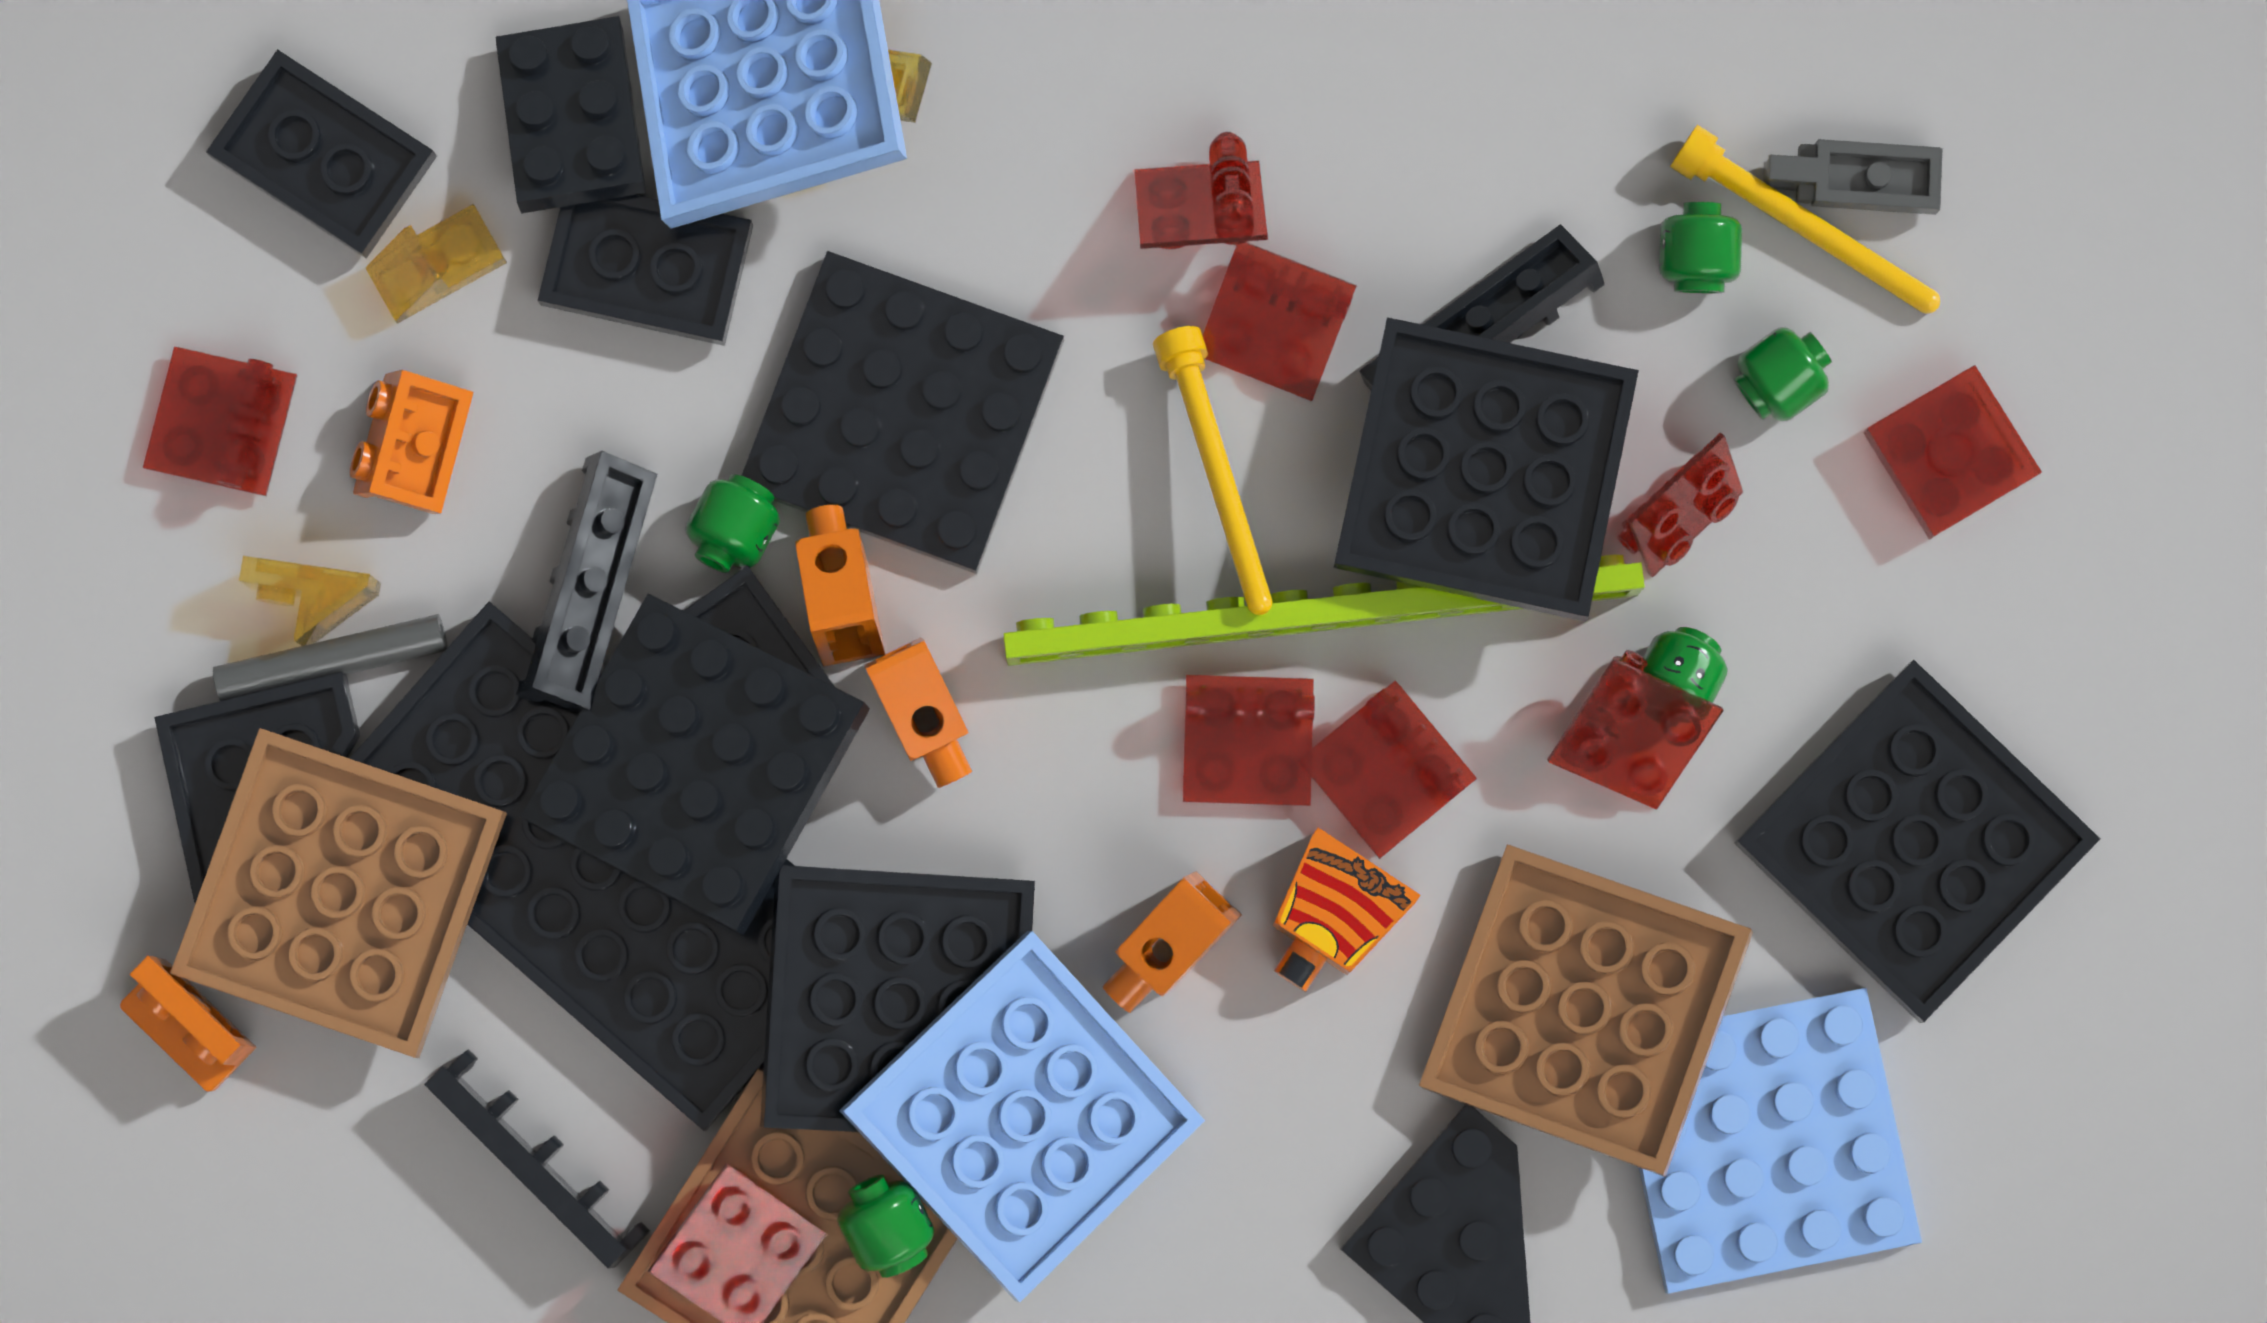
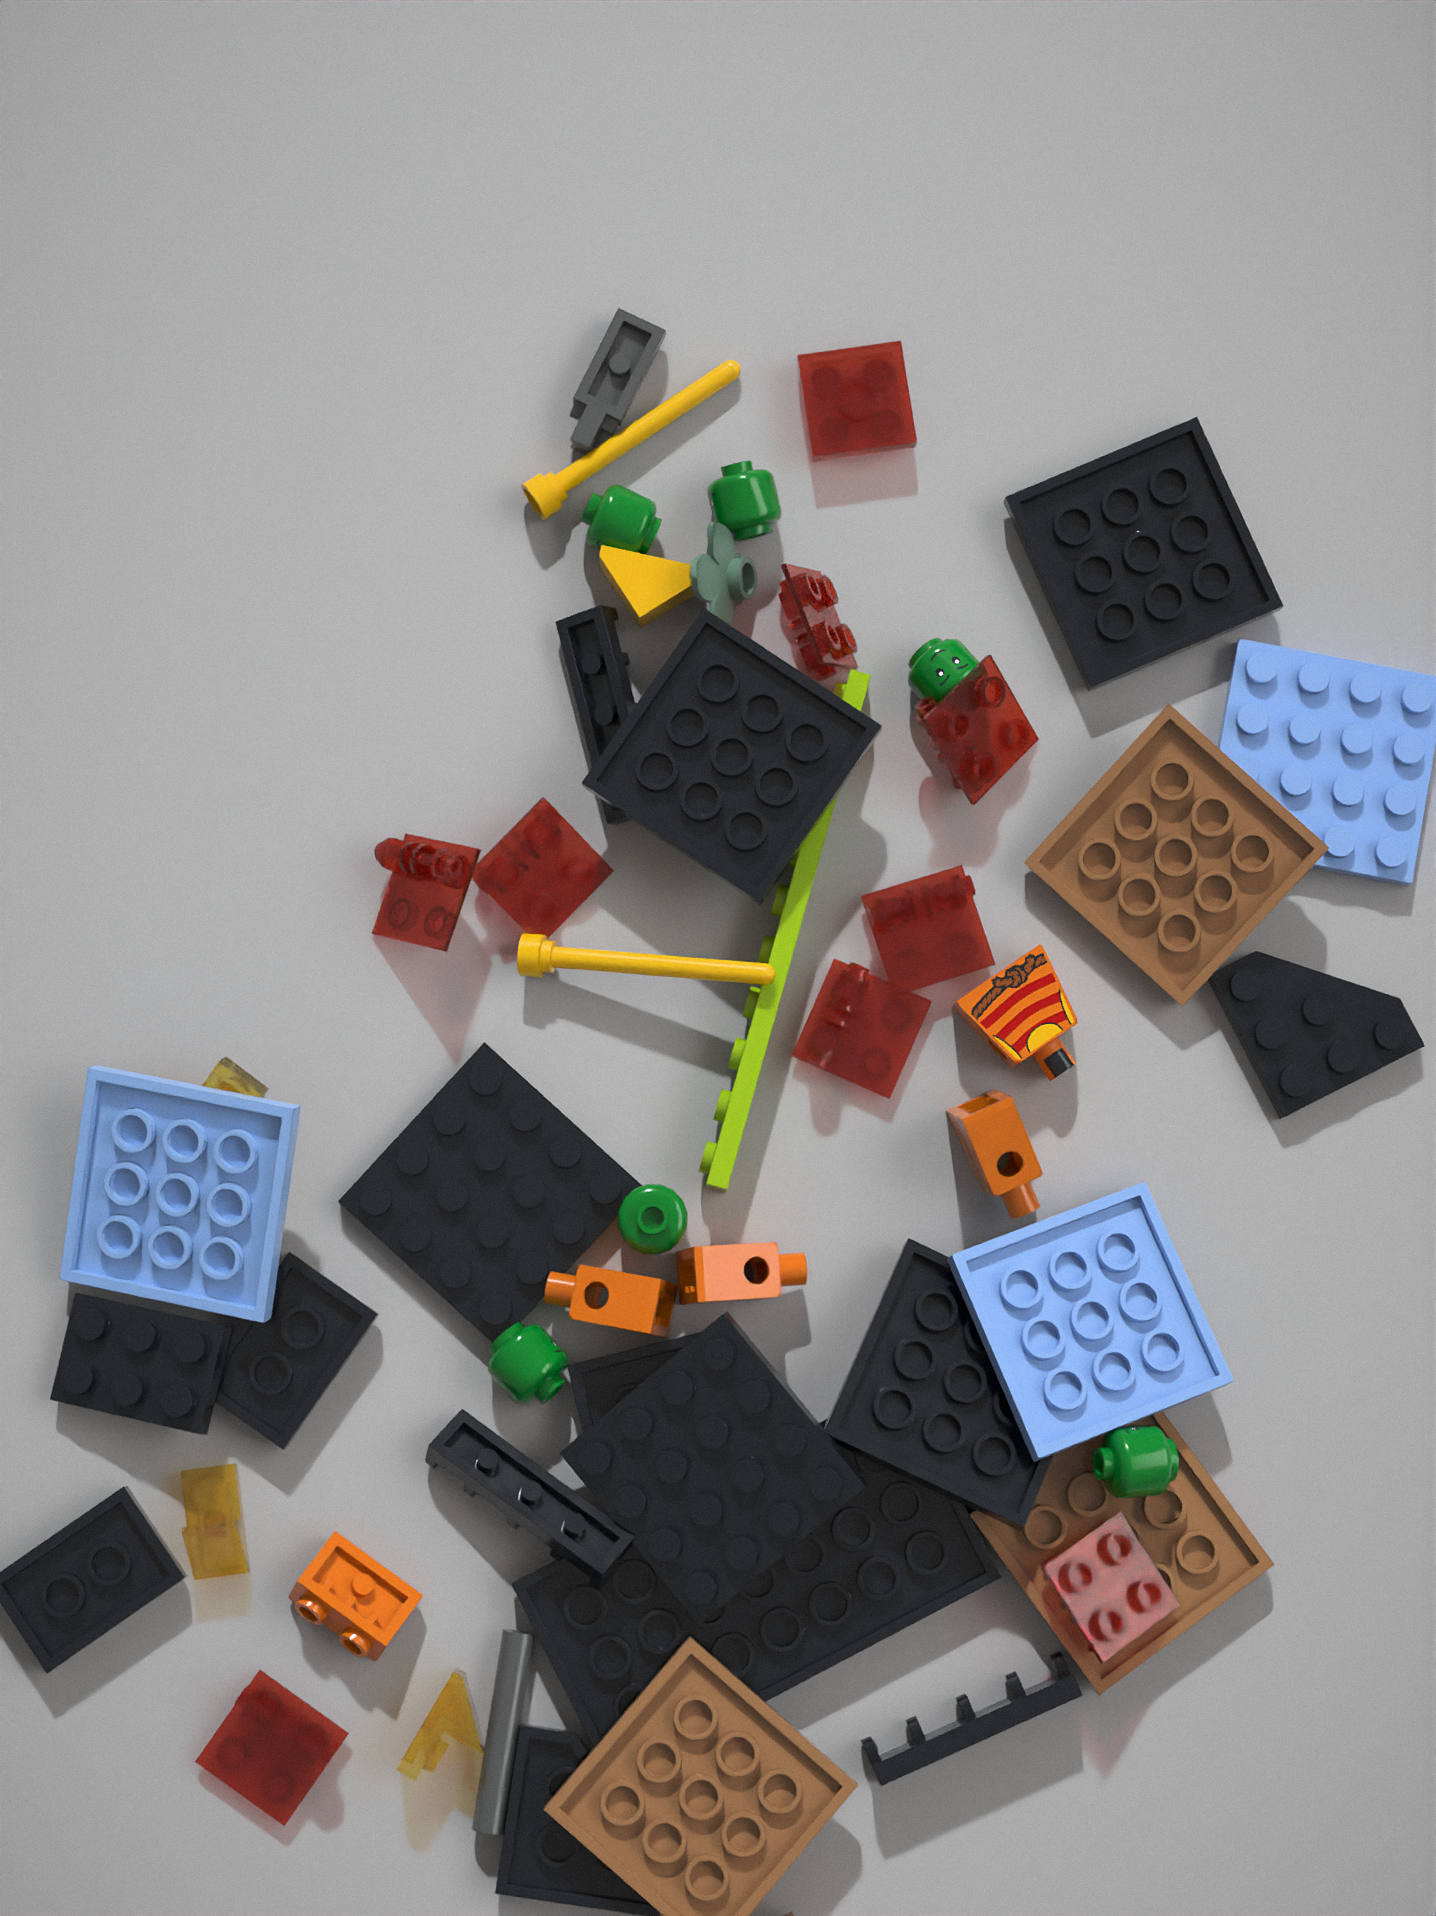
camera: 75 degrees left, 0 degrees up
(942, 593) = (652, 1219): none -> green head
(1646, 310) = (645, 582): none -> yellow slope
(1687, 380) = (722, 574): none -> sand green plate

